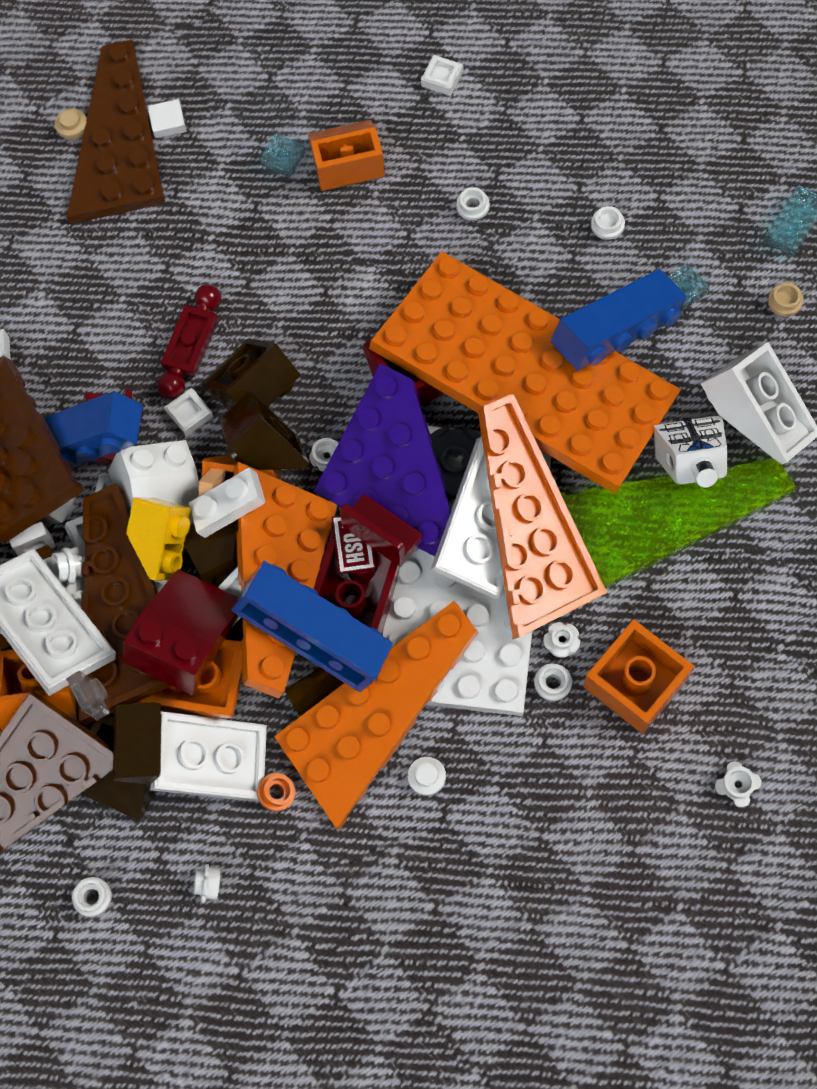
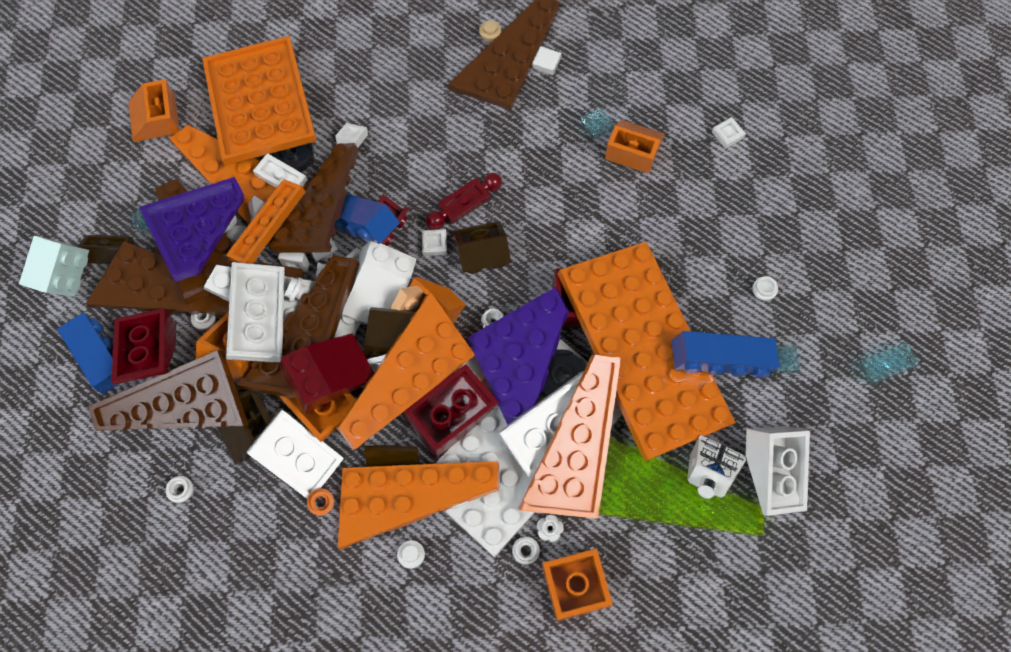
camera: 30 degrees right, 0 degrees up
(89, 694) = (248, 373): clear plate -> none
(137, 743) = (256, 419): dark brown slope -> none
(158, 535) = (355, 305): yellow slope -> none
(207, 883) = (244, 528): white plate -> none
(227, 502) = (406, 312): white plate -> none
(261, 437) = (459, 286): dark brown slope -> none
(312, 626) = (400, 421): blue brick -> none
(351, 551) = (465, 385): sticker -> none
(380, 529) = (485, 388): dark red panel -> none
(472, 196) = (694, 219): white plate -> none
(785, 299) = (844, 410): tan plate -> none

